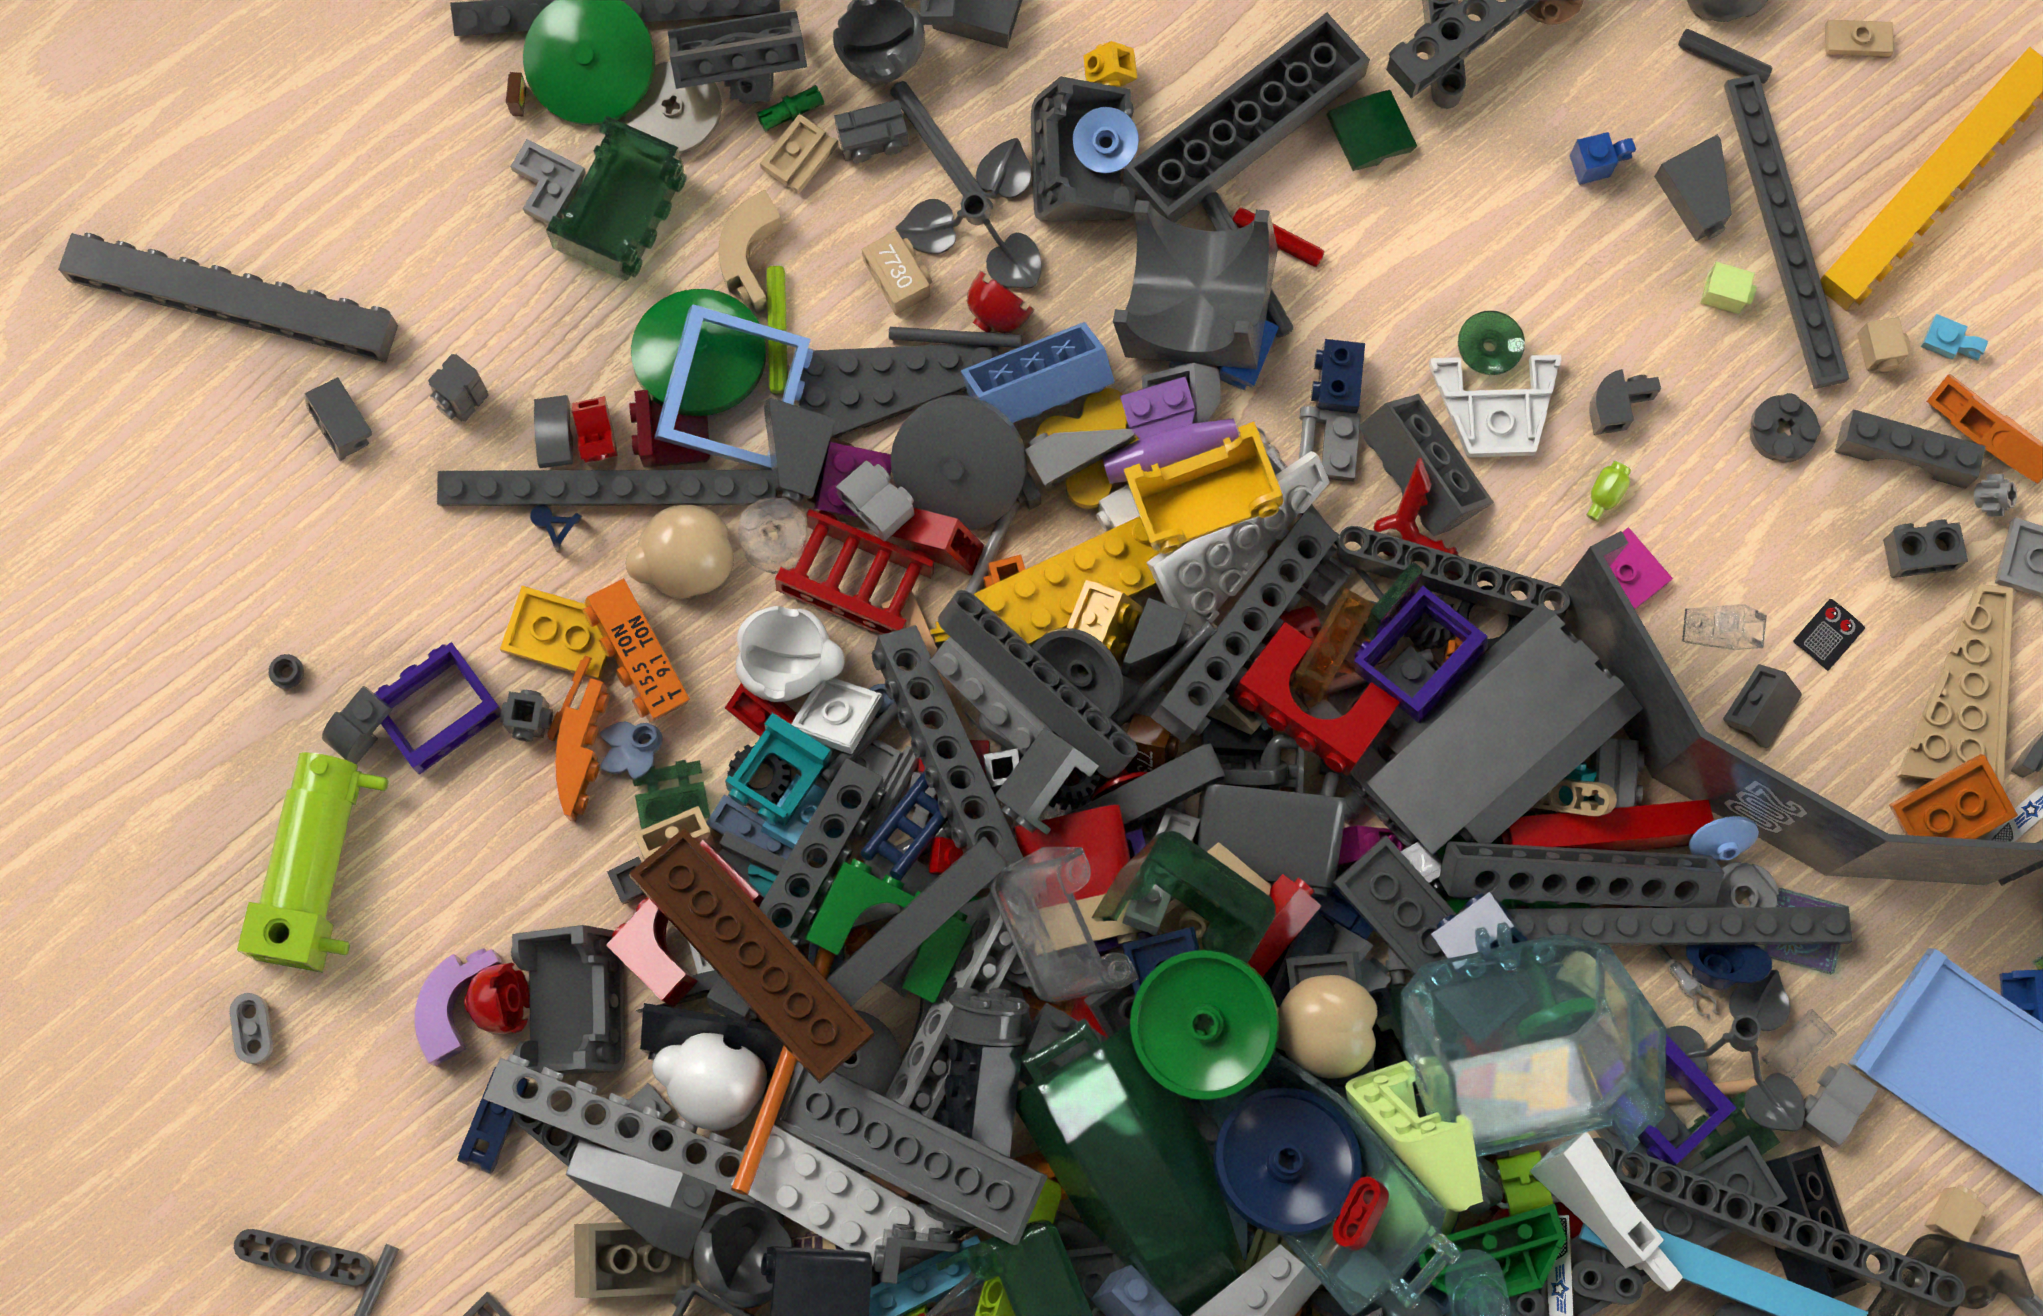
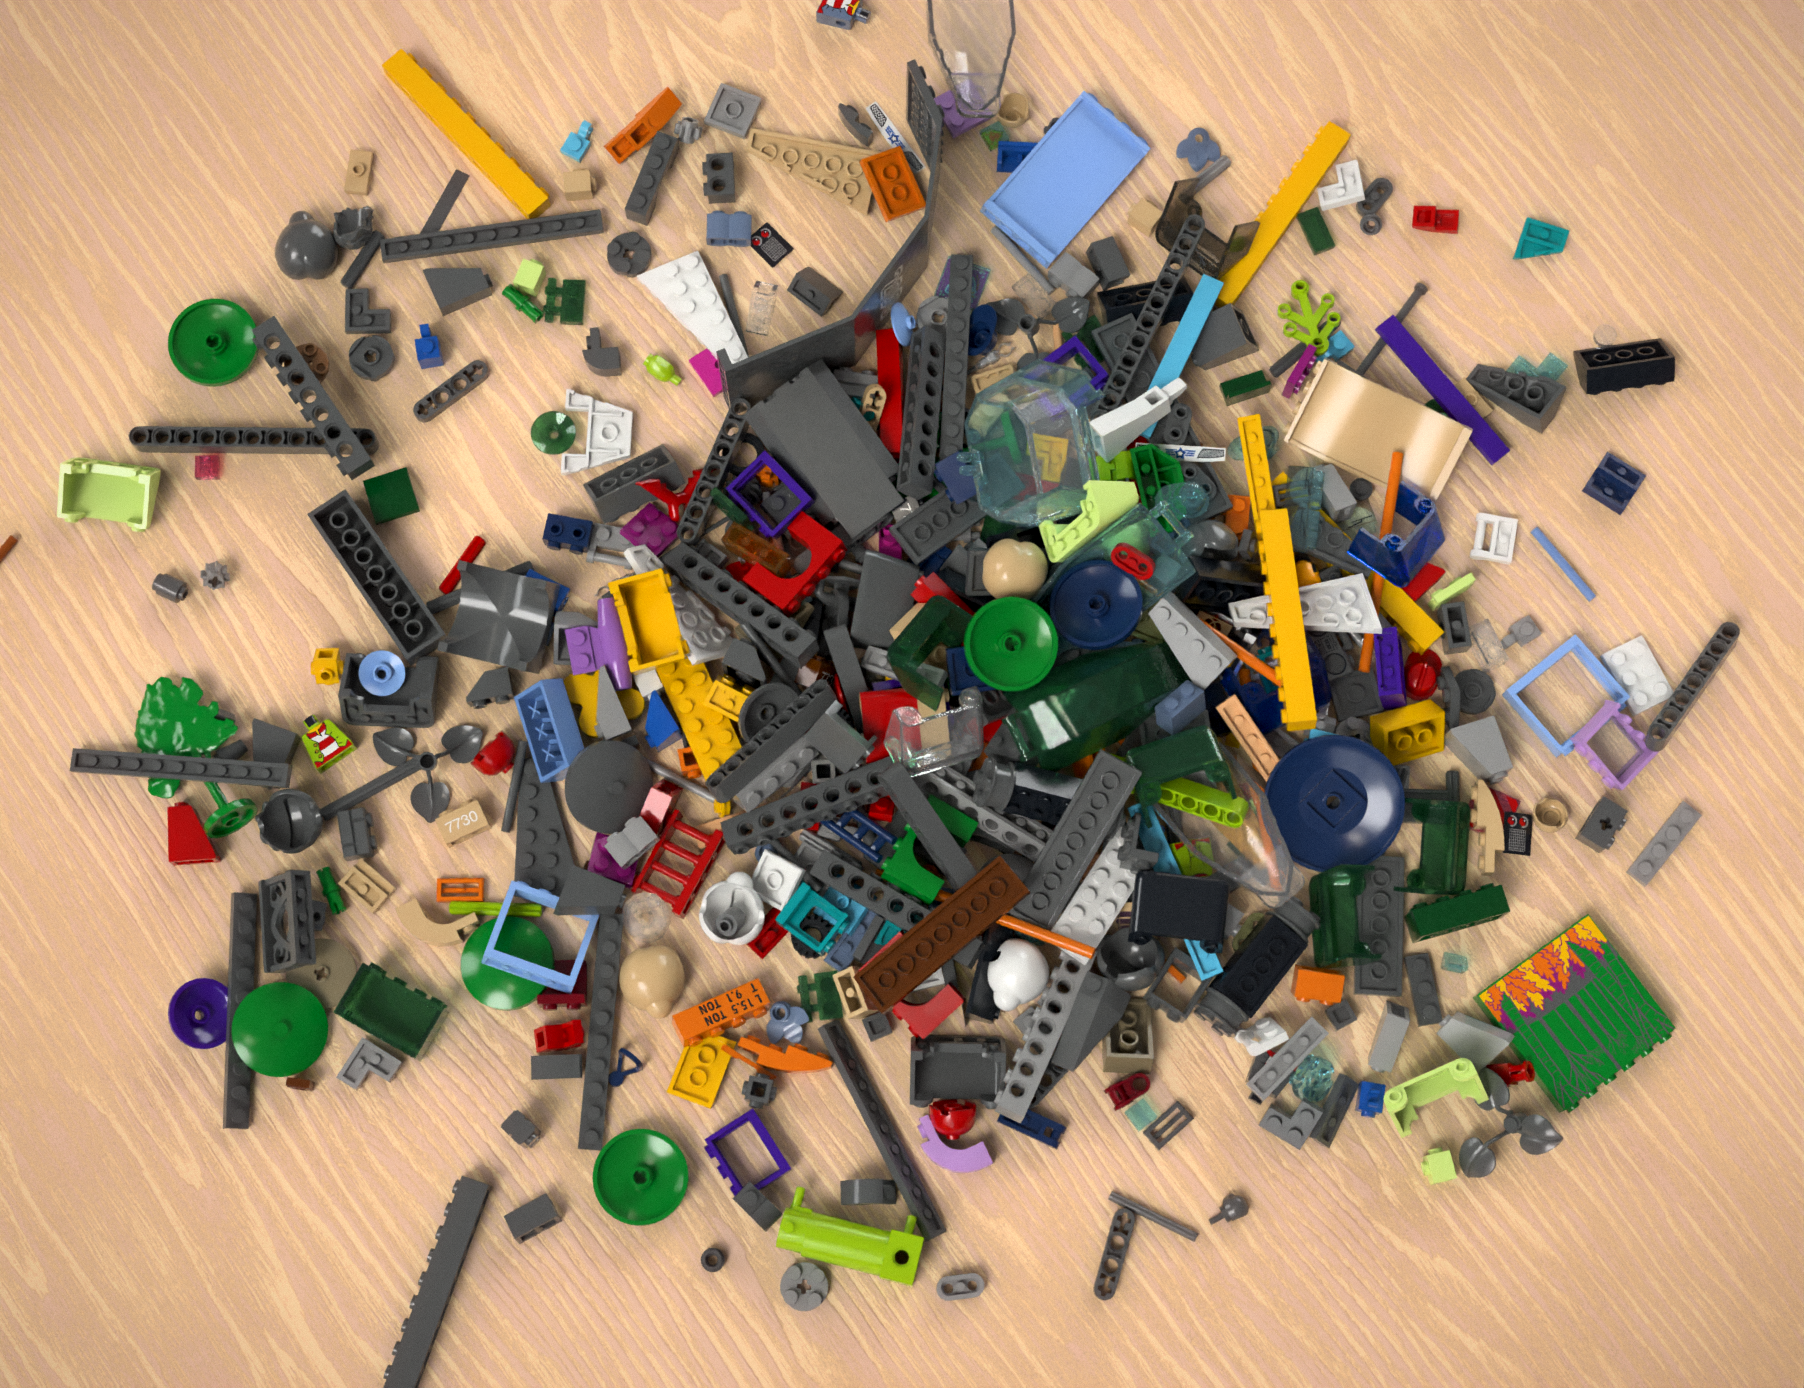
camera: 85 degrees left, 0 degrees up
(235, 789) = (795, 1276): none -> light grey plate
(382, 884) = (868, 1192): none -> dark grey brick
(396, 558) = (640, 1177): none -> green dish
(476, 898) = (882, 1130): none -> dark grey plate
(514, 1287) = (1140, 1114): none -> clear light blue tile
(543, 1259) = (1126, 1091): none -> dark red piece
(770, 652) = (730, 921): none -> dark grey brick
(803, 306) = (480, 898): none -> orange tile
(999, 78) = (326, 743): none -> torso
(1062, 529) = (660, 725): none -> blue slope
(1097, 292) = (490, 688): none -> dark grey slope
(1355, 492) = (652, 529): none -> magenta plate
(1534, 200) = (448, 388): none -> dark grey beam
(1576, 100) = (371, 370): none -> dark grey plate
(1634, 62) = (360, 318): none -> dark grey plate
(1654, 986) = (985, 379): none -> tan plate
(1686, 283) = (523, 303): none -> green pin
(1698, 354) = (572, 301): none -> clear green plate
(1706, 589) = (730, 303): none -> dark grey bar
(1724, 526) = (694, 301): none -> white wing
(1771, 36) = (353, 227): none -> dark grey hair
(1830, 163) = (445, 202): none -> dark grey sticker
(1844, 569) = (729, 229): none -> sand blue brick
(1856, 1024) = (1021, 258): none -> light grey bar
(1870, 1159) = (1107, 263): none -> dark grey hinge

